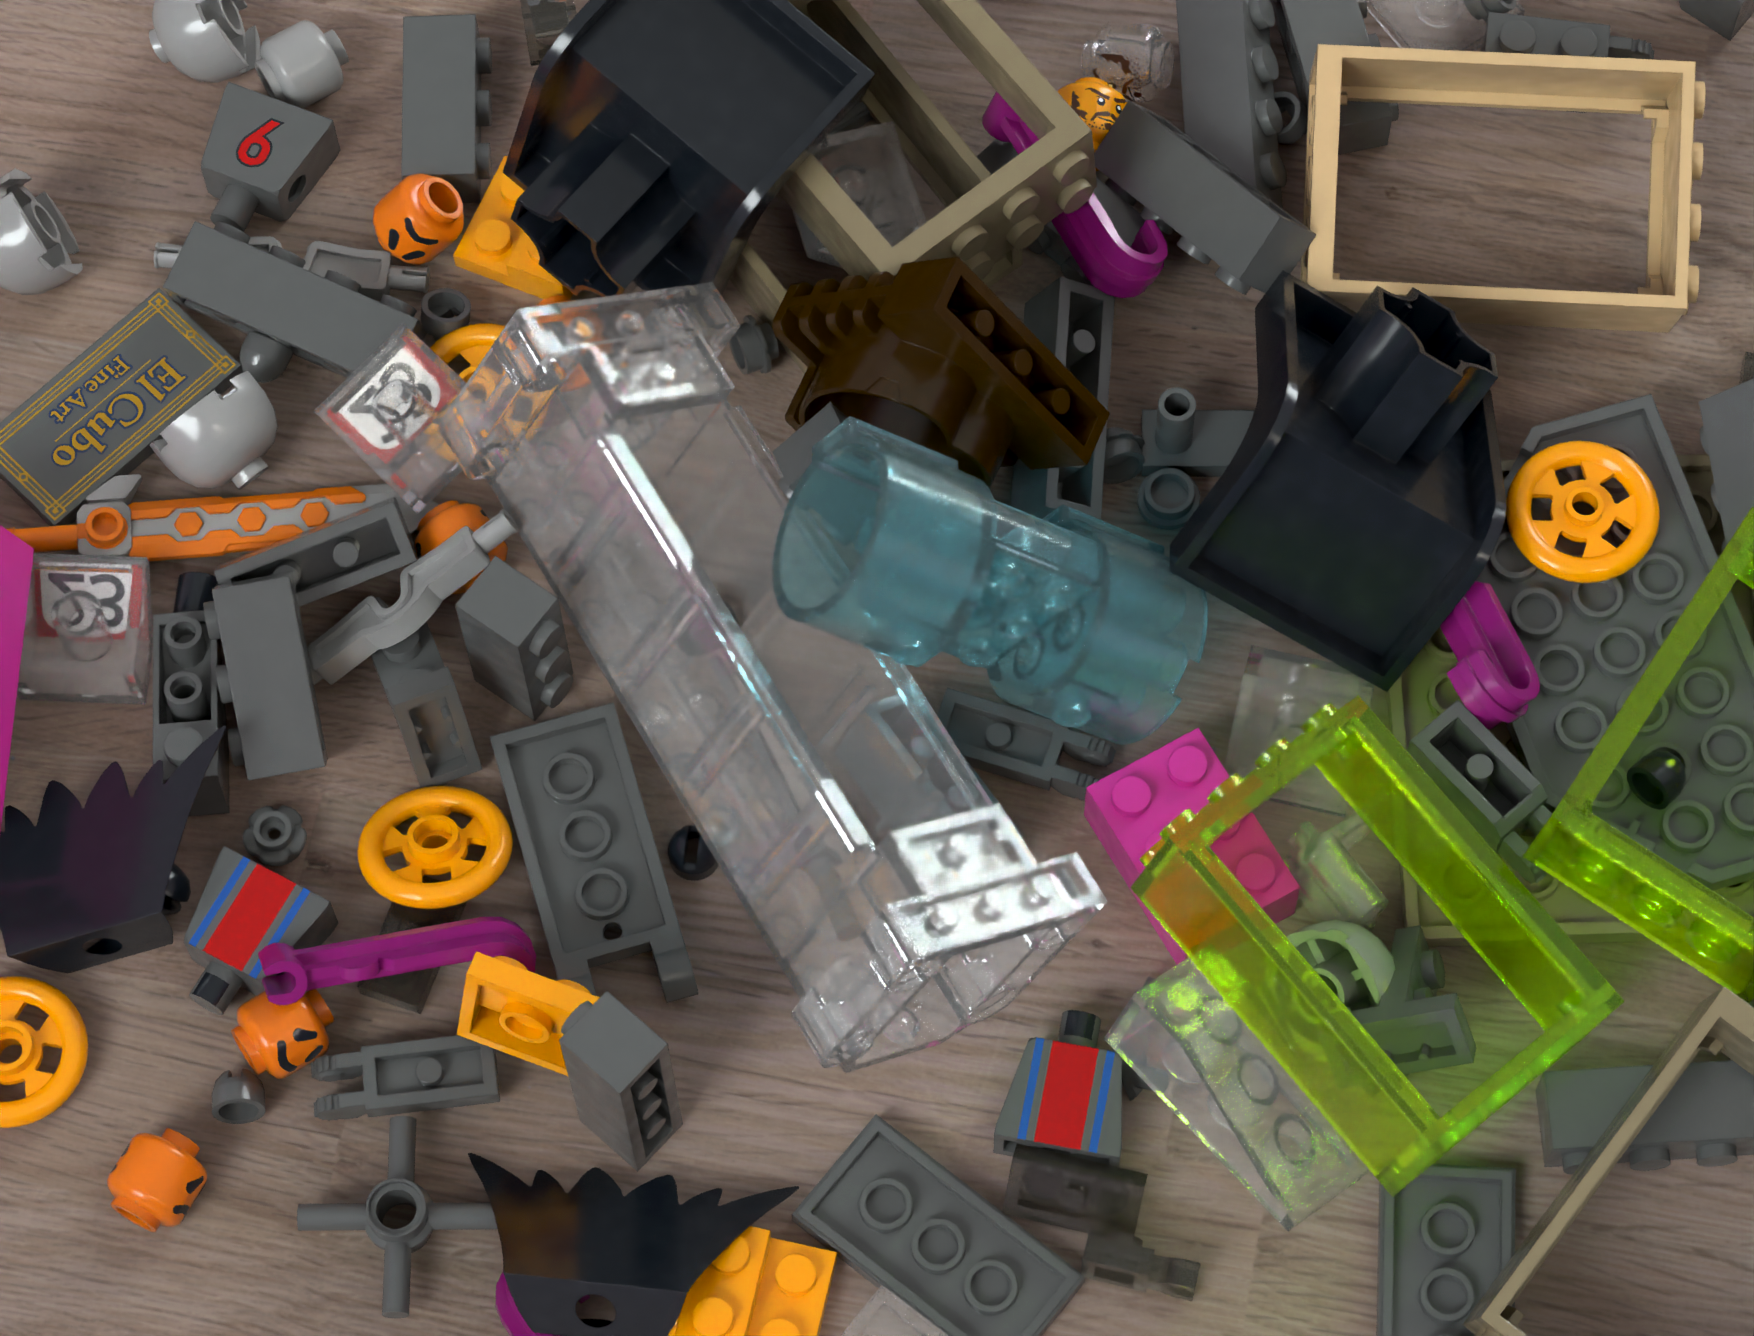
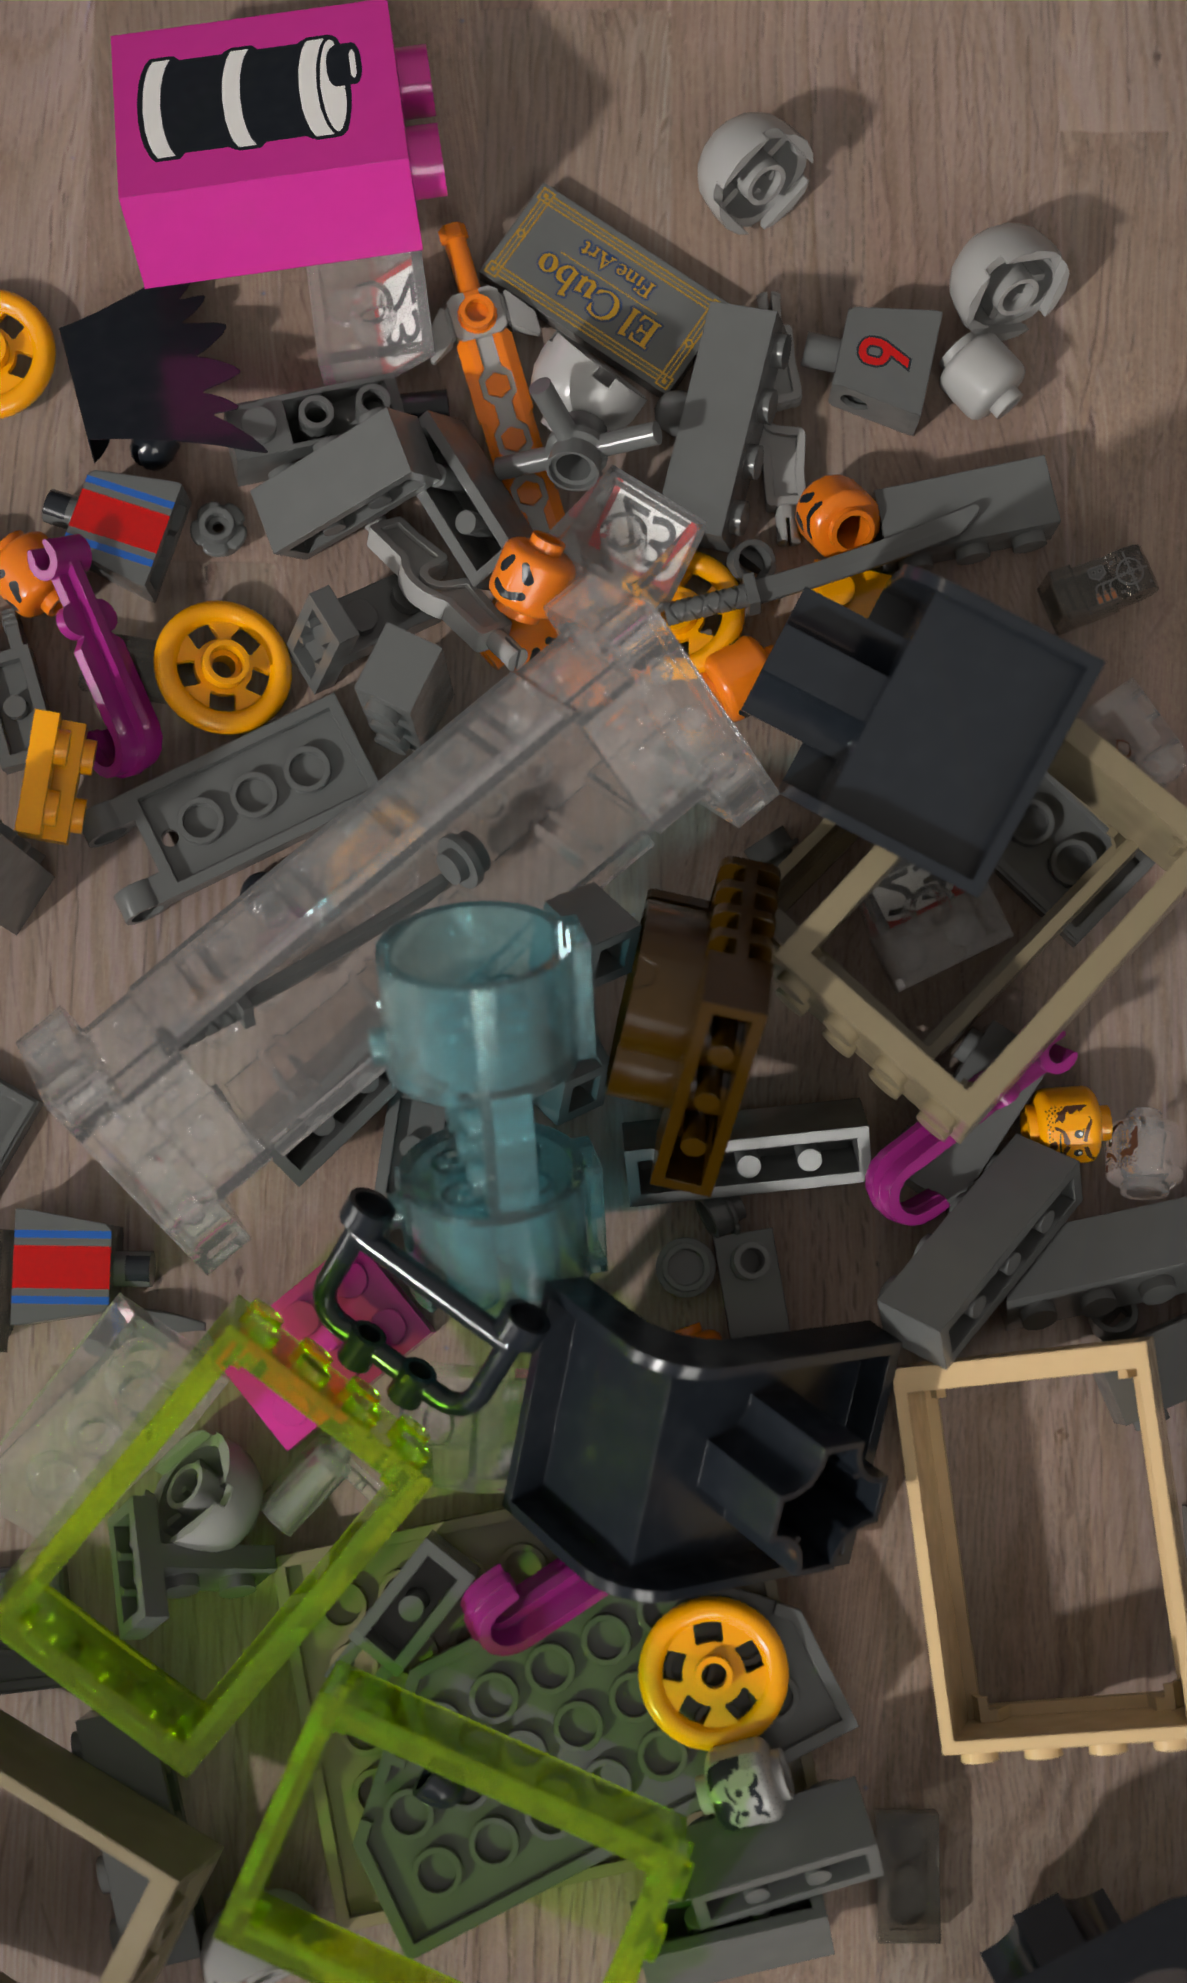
camera: 80 degrees right, 15 degrees up
(289, 438) = (576, 446): none -> dark grey bar
(425, 491) = (530, 576): none -> orange head
(483, 302) = (786, 583): none -> dark grey sword
(1247, 733) = (516, 1329): none -> black bar
(1693, 490) = (745, 1783): none -> light grey head

